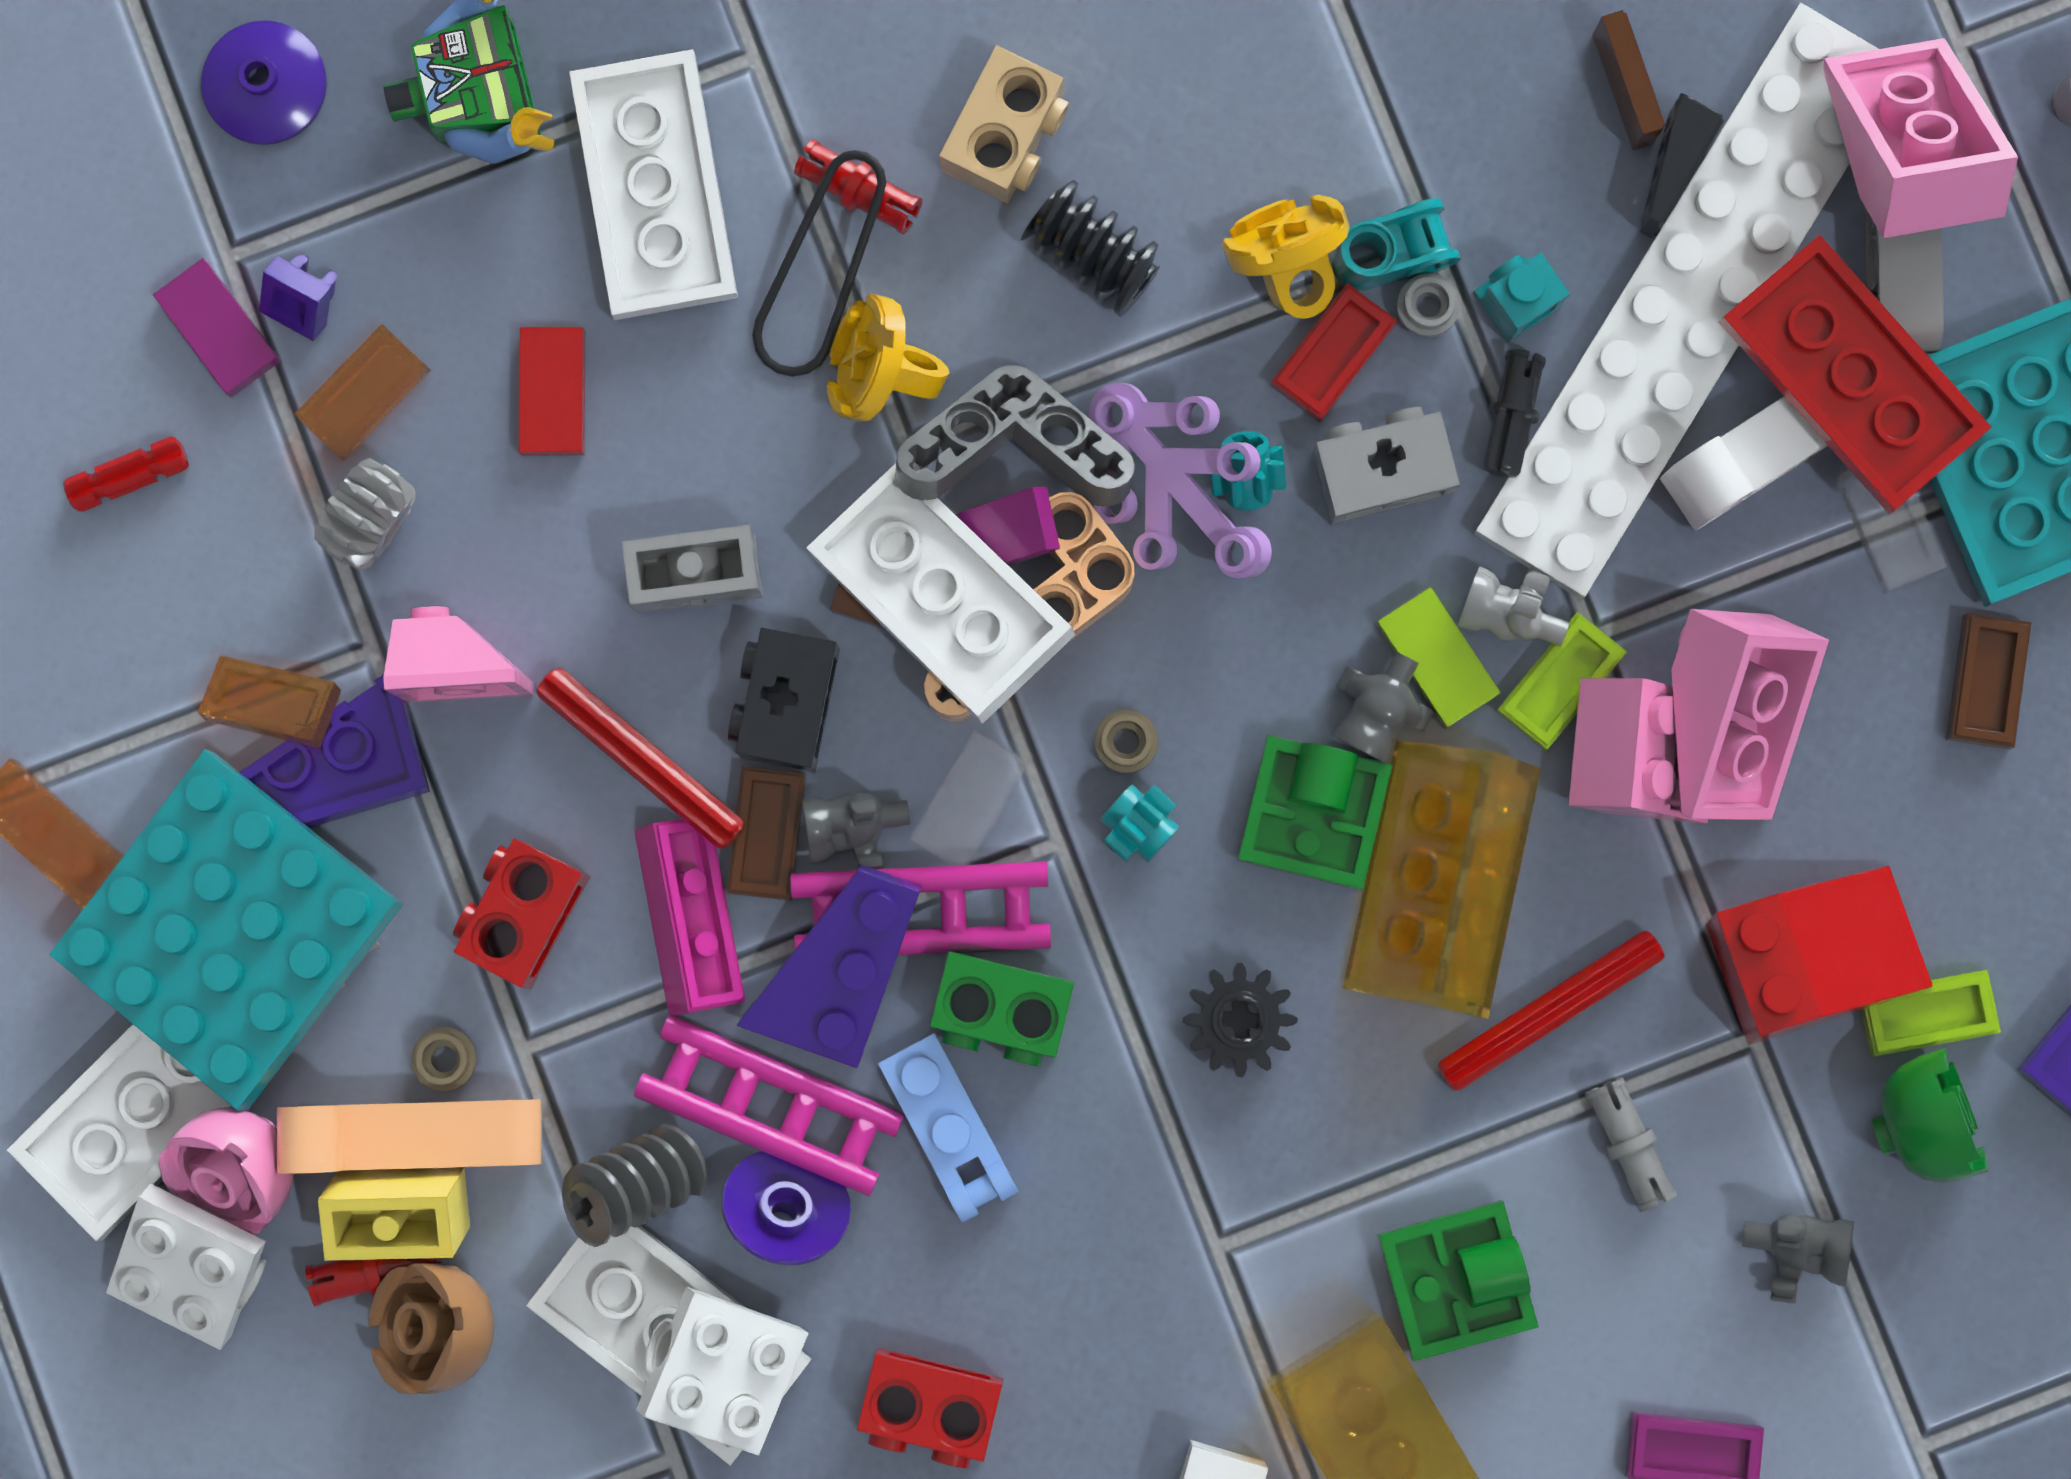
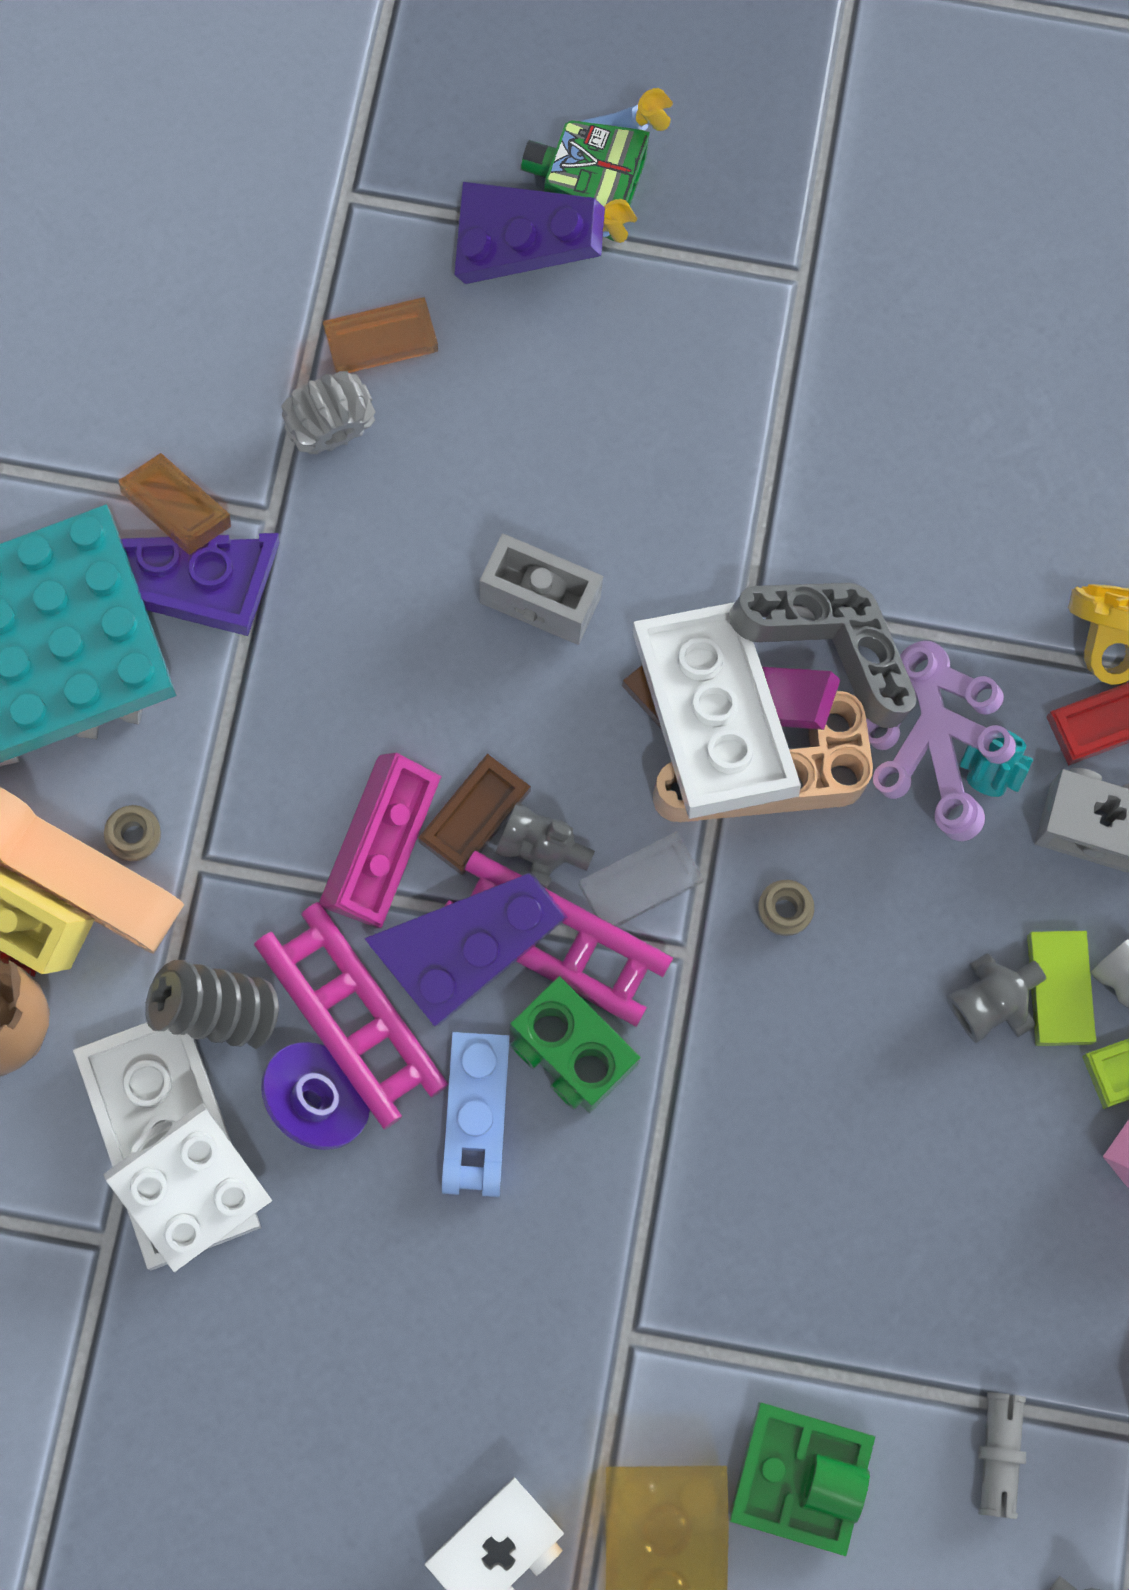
camera: 20 degrees right, 10 degrees down
(125, 474) = (177, 293): red axle -> none
(217, 327) = (306, 235): magenta tile -> none
(280, 105) = (450, 115): dark purple dish -> none
(296, 296) = (376, 243): dark purple tile -> none
(440, 195) = (523, 231): none -> dark purple wing
(446, 660) = (320, 550): bright pink slope -> none
(535, 921) = (265, 772): red brick -> none
(552, 391) = (515, 413): red tile -> none
(640, 758) = (416, 703): red axle -> none
(653, 184) = (677, 316): white plate -> none
(810, 671) = (541, 753): black brick -> none
(851, 274) = (752, 415): black piece -> none
(857, 186) = (825, 401): red pin -> none
(876, 361) = (764, 519): yellow tile -> none
(934, 1388) = (339, 1309): red brick -> none
(989, 121) = (950, 411): tan brick -> none
(1094, 247) = (973, 539): black piece -> none
(1139, 823) = (761, 971): teal gear -> none
(1256, 1001) = (771, 1164): black gear -> none
(1315, 812) = (900, 1045): green plate -> none
(1442, 878) = (971, 1154): clear yellow slope -> none
(1551, 1010) = (997, 1310): red axle -> none

